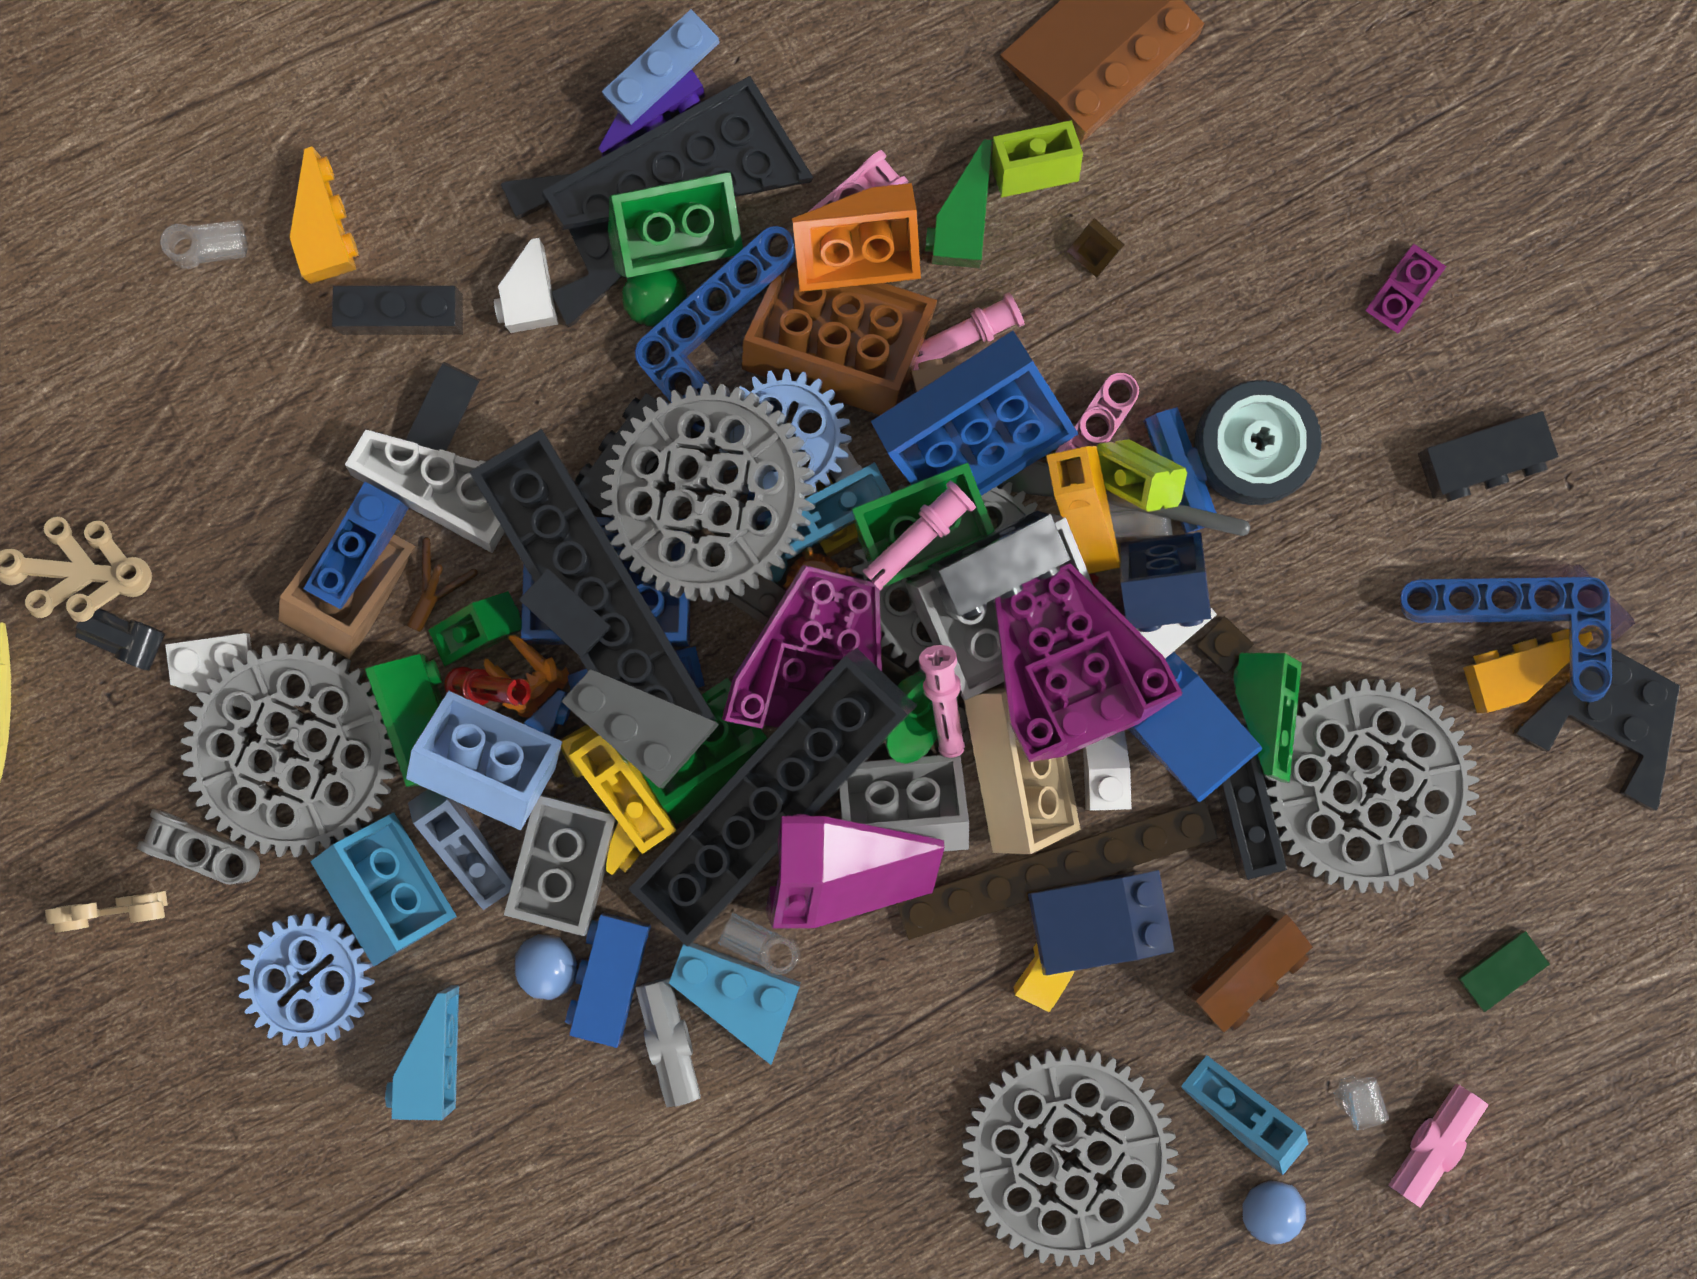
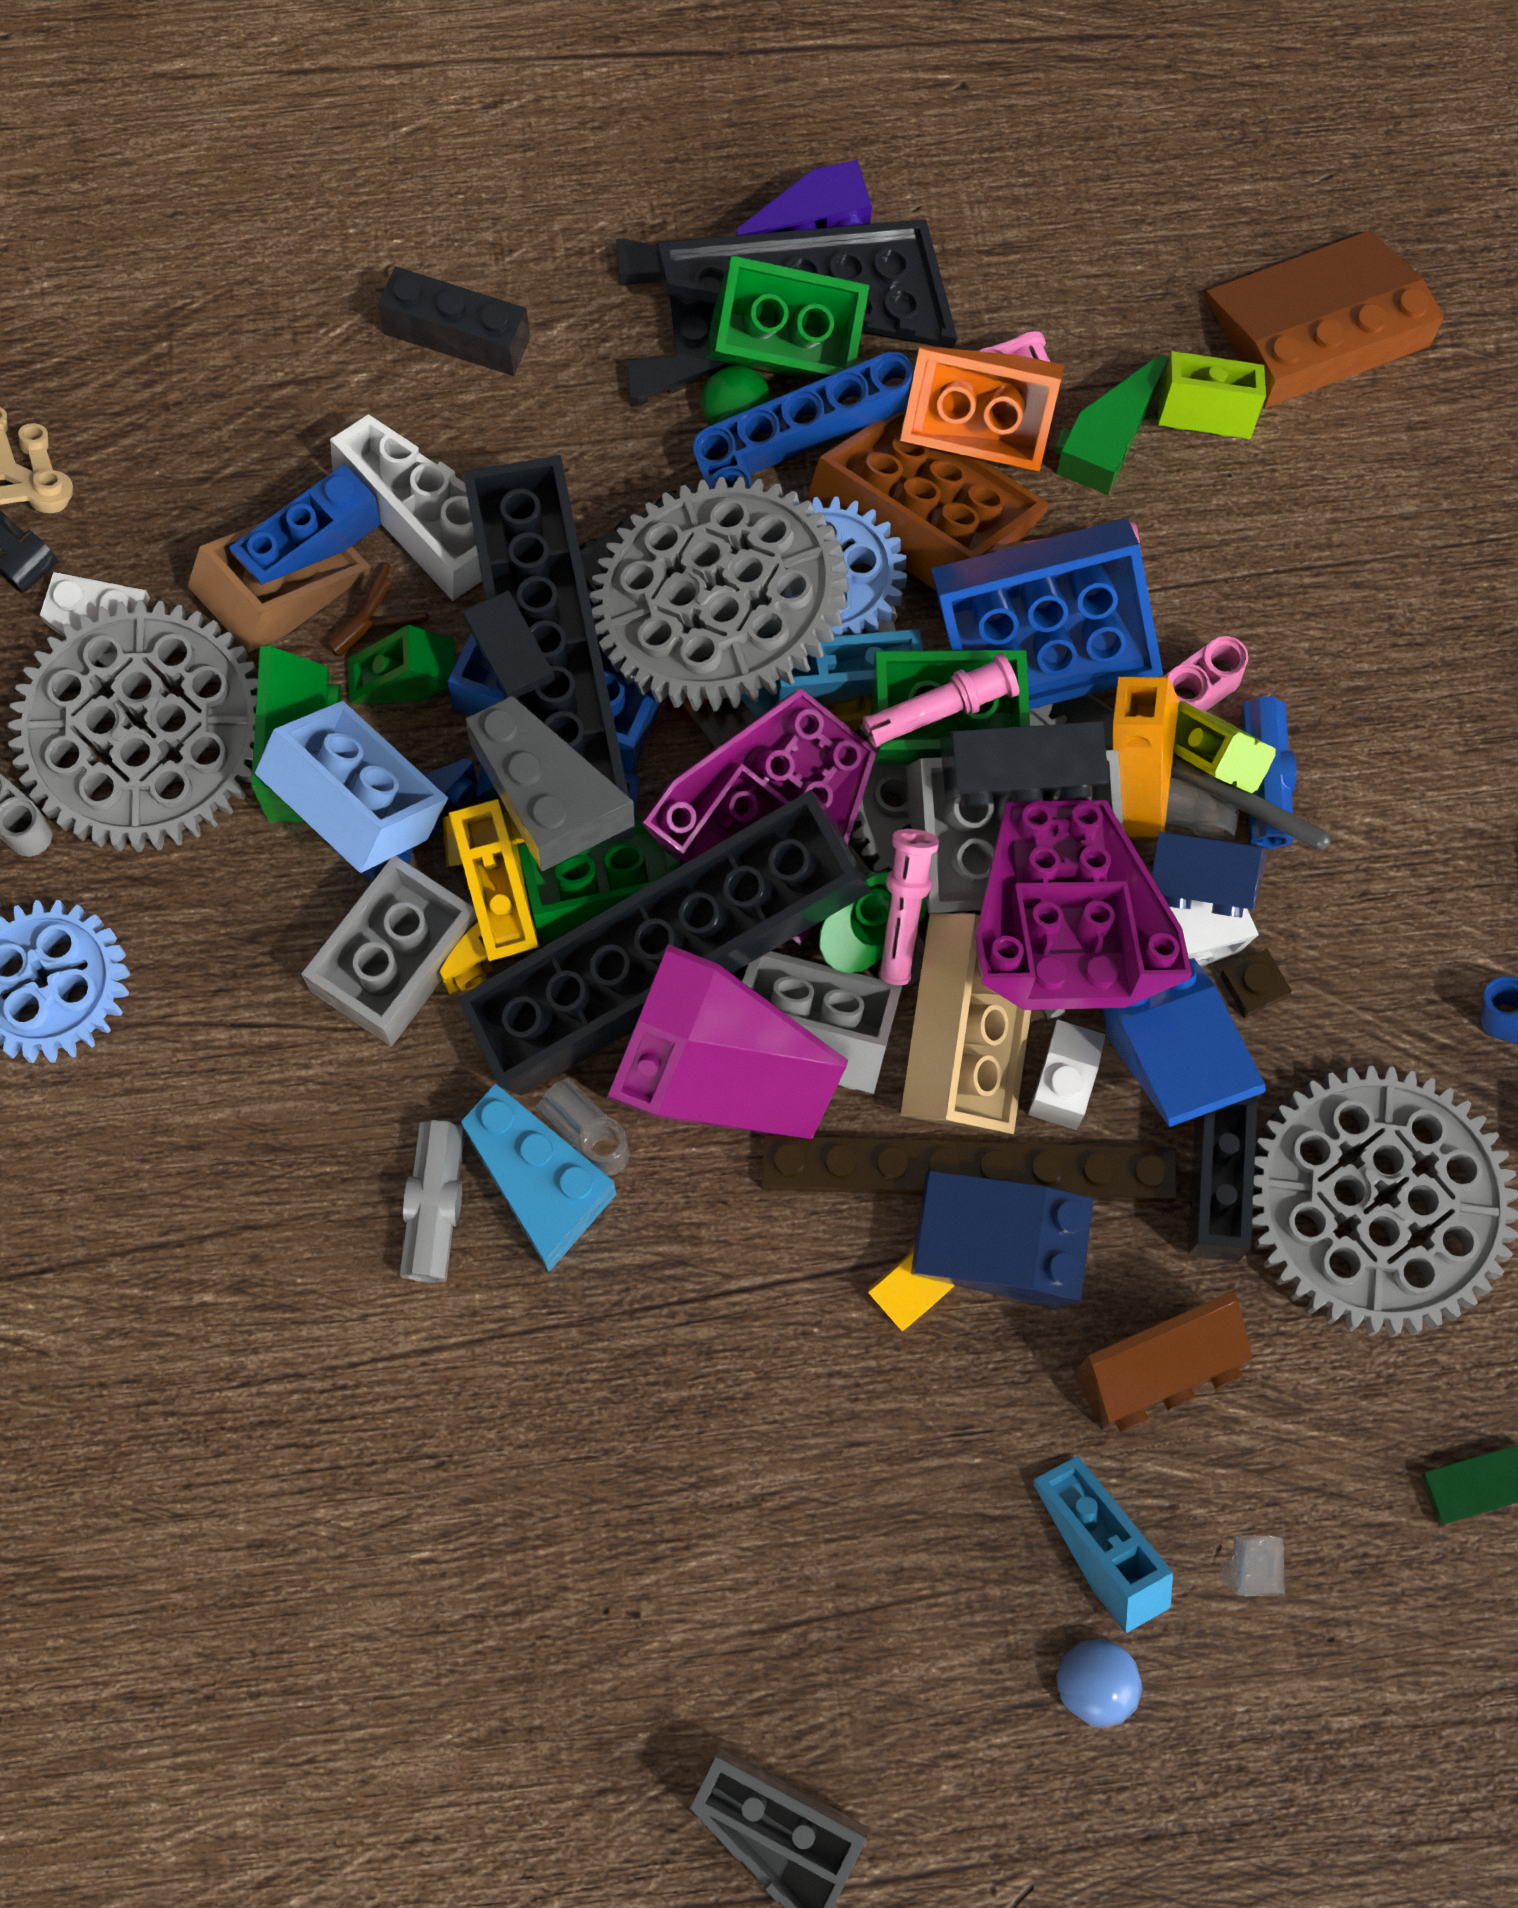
camera: 20 degrees right, 15 degrees down
(208, 244) = (276, 192): clear piece -> none
(316, 226) = (404, 213): light orange slope -> none
(383, 888) = (176, 910): dark azure slope -> none
(428, 1072) = (143, 1114): dark azure slope -> none
(443, 408) = (465, 430): black slope -> none
(461, 846) = (284, 893): sand blue slope -> none
(482, 688) = (398, 719): red pin -> none
(526, 292) = (600, 350): white slope -> none
(542, 682) = (421, 746): orange piece -> none
(545, 967) = (324, 1067): medium blue hair -> none
(608, 979) = (392, 1103): blue brick -> none
(660, 67) = (833, 171): medium blue plate -> none
(999, 1169) = (960, 1525): light grey gear -> none
(1095, 247) = (1247, 509): dark brown plate -> none
(1269, 700) = (1290, 1051): green slope -> none
(1287, 436) = (1367, 768): wheel -> none
(1438, 1145) = (1335, 1670): bright pink piece -> none

